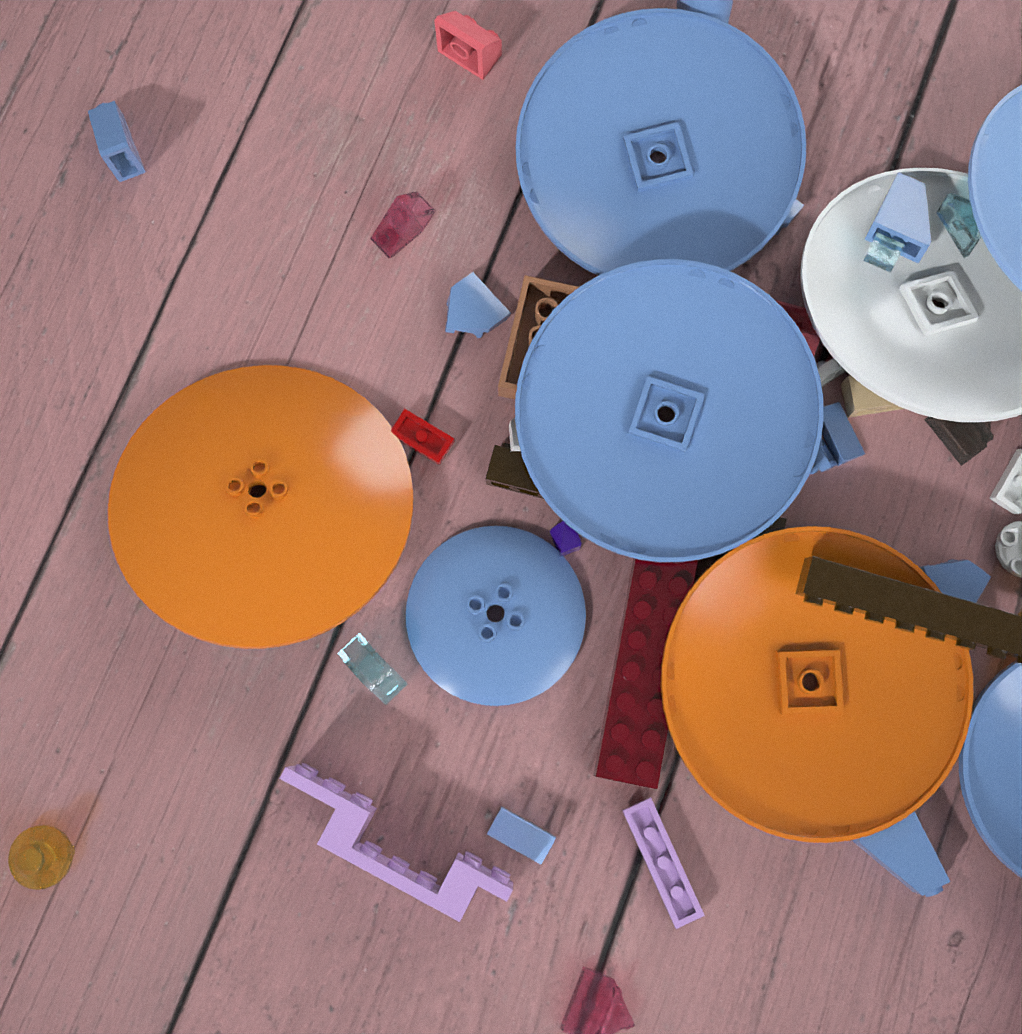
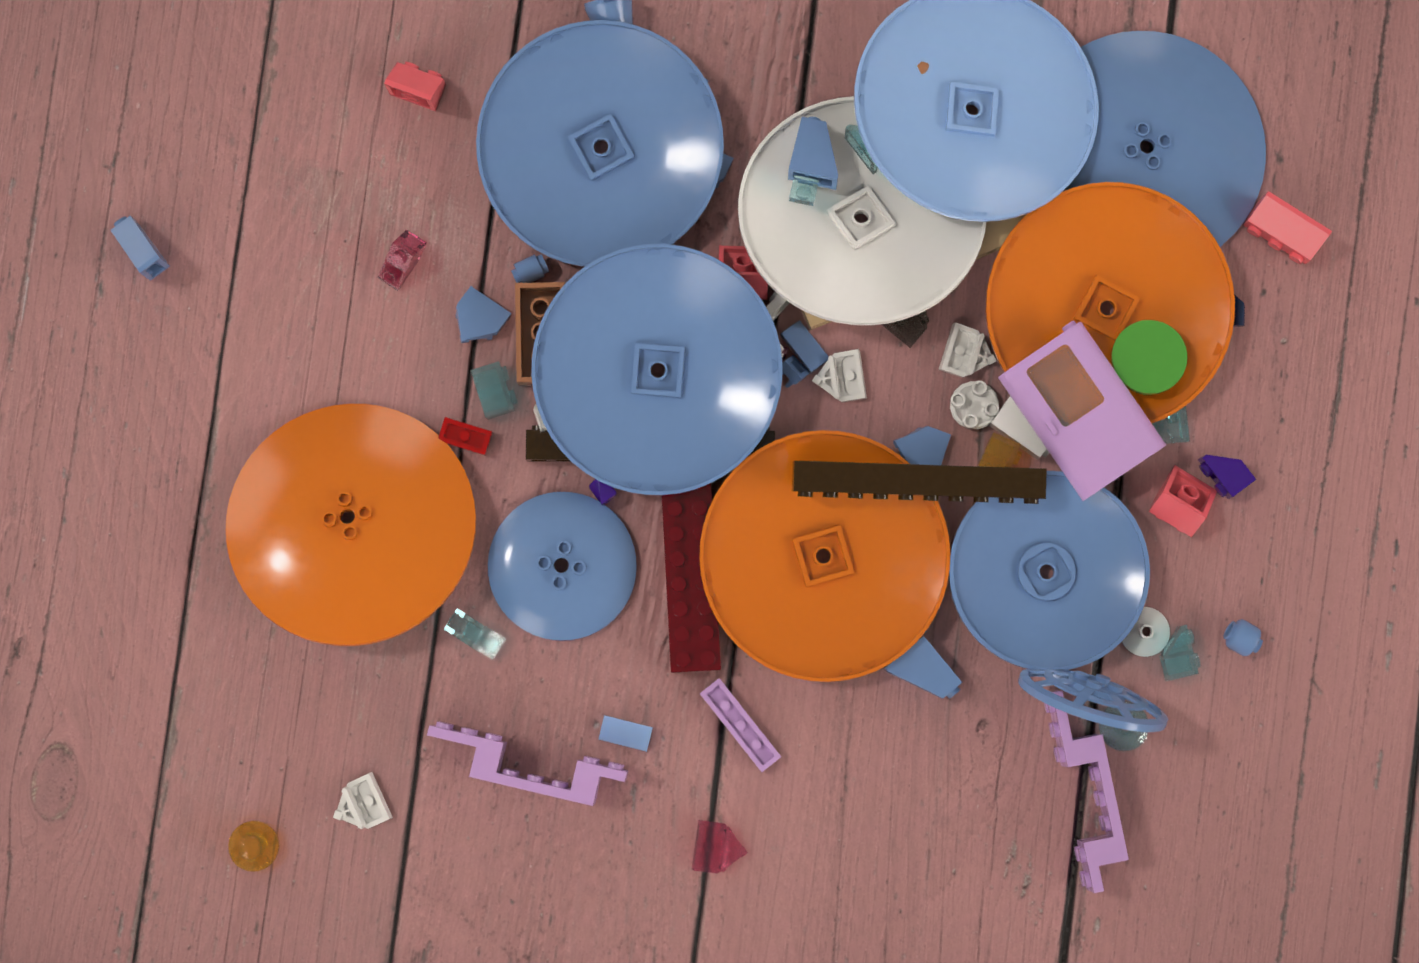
camera: 15 degrees left, 5 degrees up
(185, 839) = (363, 803): none -> white slope
(467, 392) = (493, 390): none -> clear light blue brick
(546, 267) = (530, 269): none -> medium blue brick
(876, 478) = (843, 376): none -> white slope

